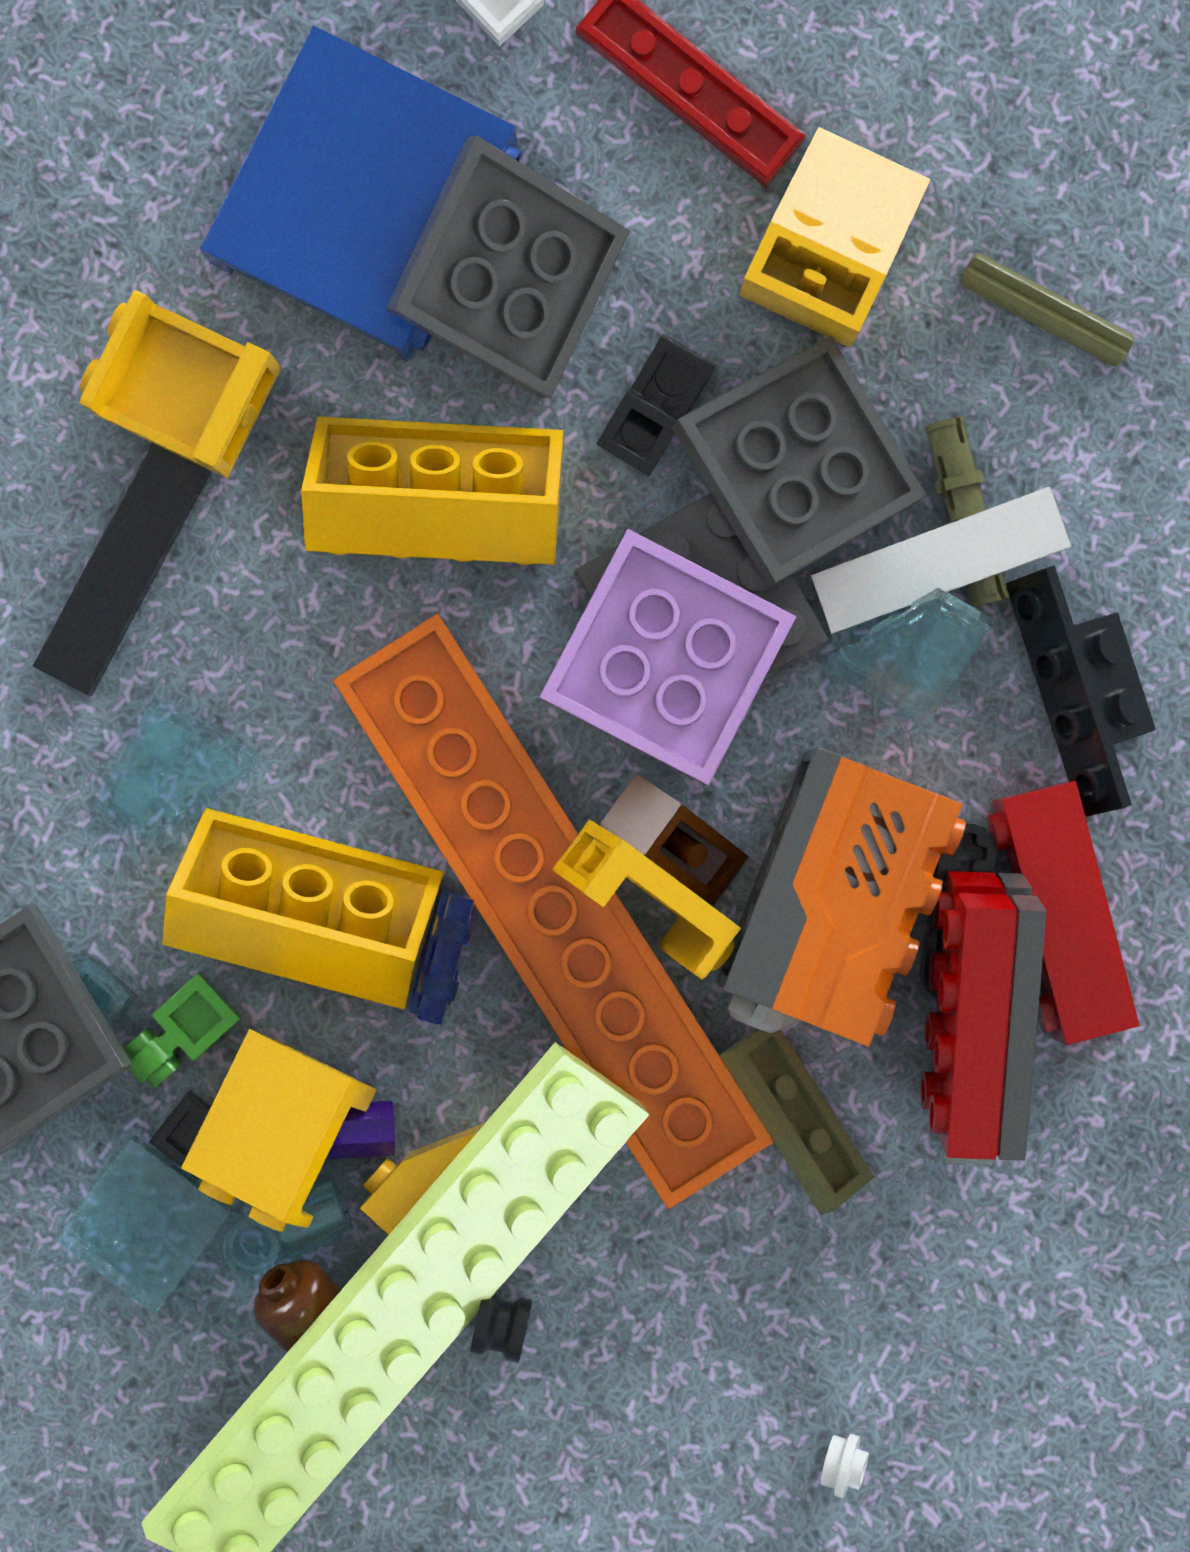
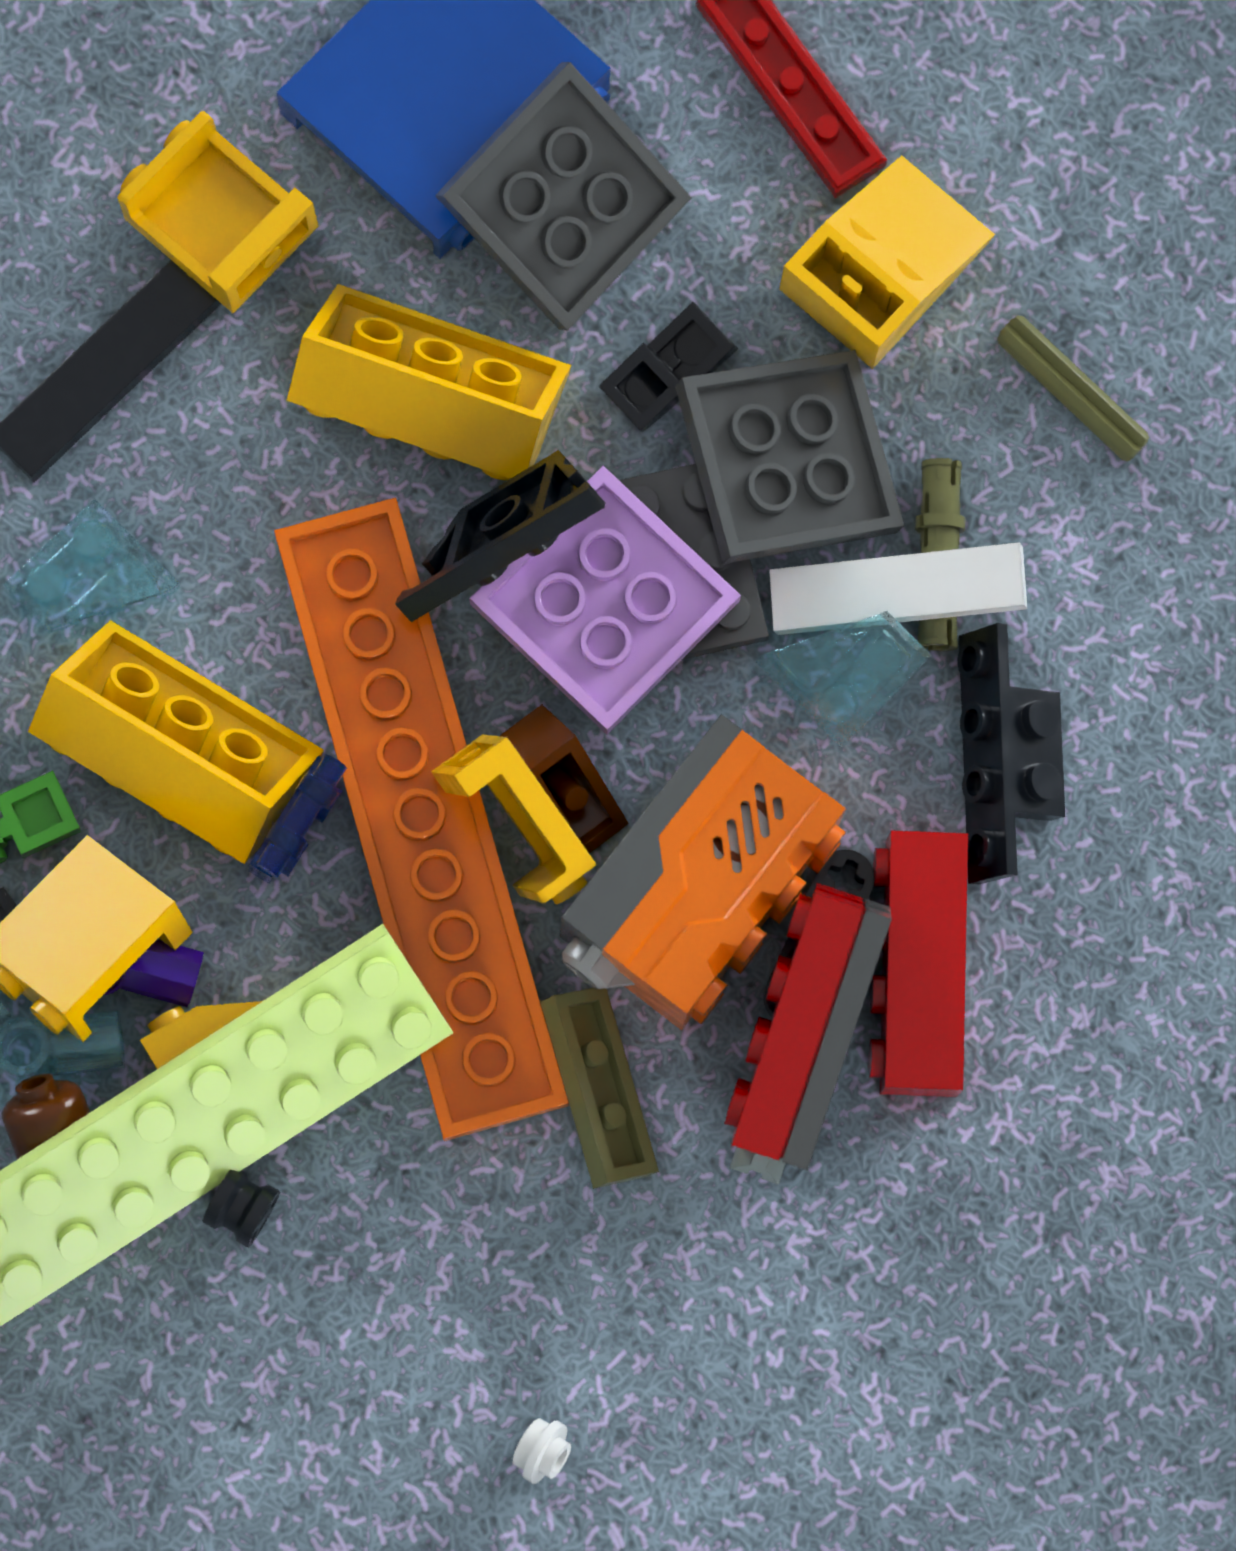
camera: 10 degrees right, 10 degrees down
(552, 619) = (500, 528): none -> black wing

